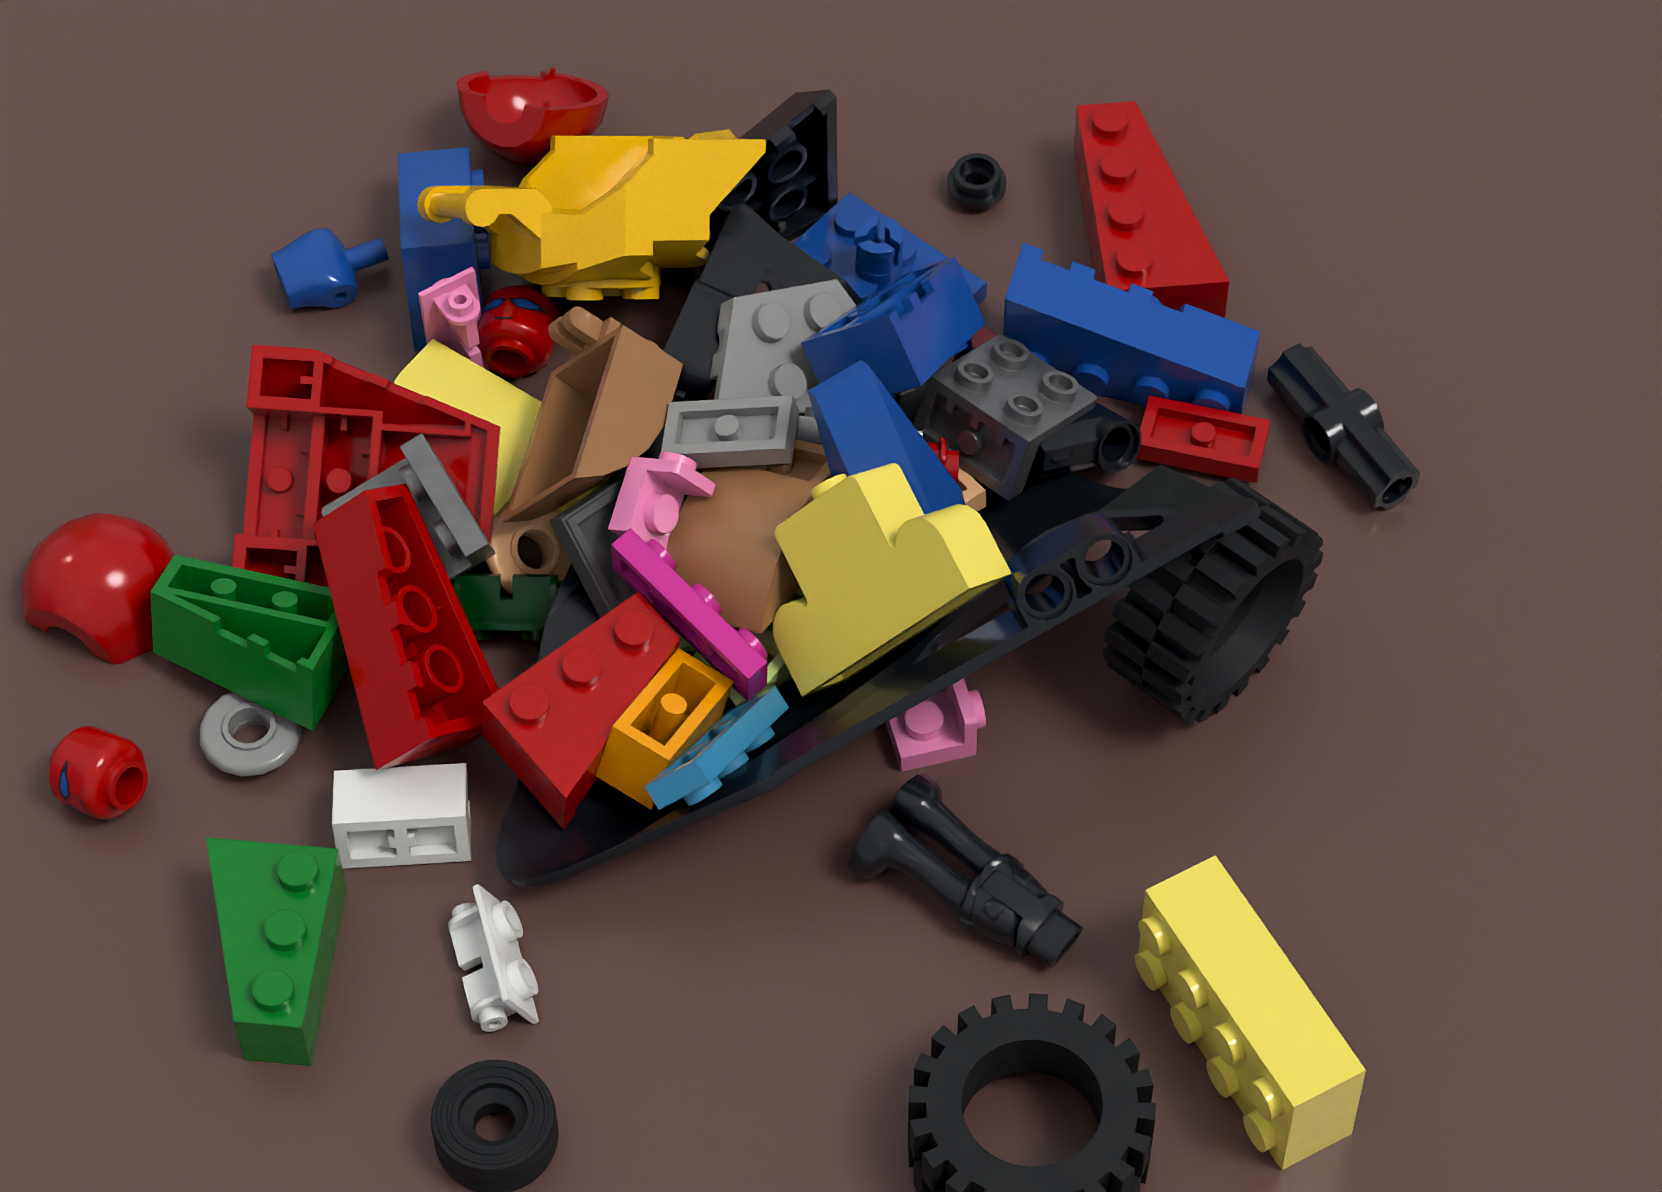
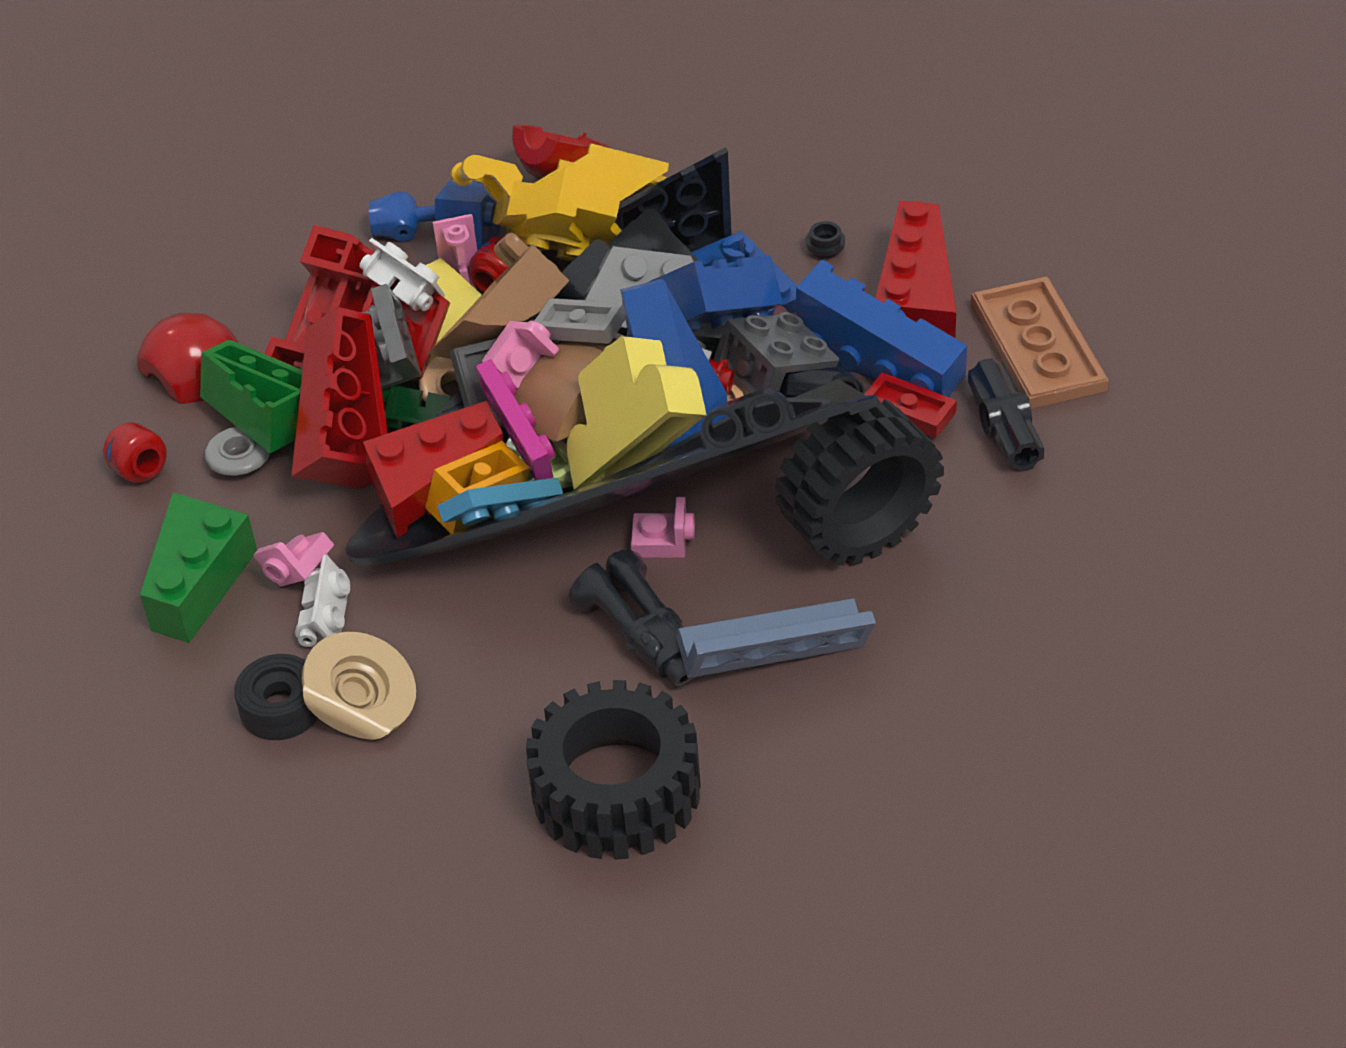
camera: 20 degrees right, 10 degrees down
(402, 815) = (303, 508): white hinge -> none
(427, 897) = (294, 560): none -> bright pink bracket
(445, 410) = (415, 283): none -> white hinge
(611, 1082) = (358, 685): none -> tan hat
(1114, 886) = (773, 637): none -> sand blue fence
(1248, 1014) = (785, 733): light yellow brick -> none
(1339, 291) = (1039, 342): none -> nougat tile

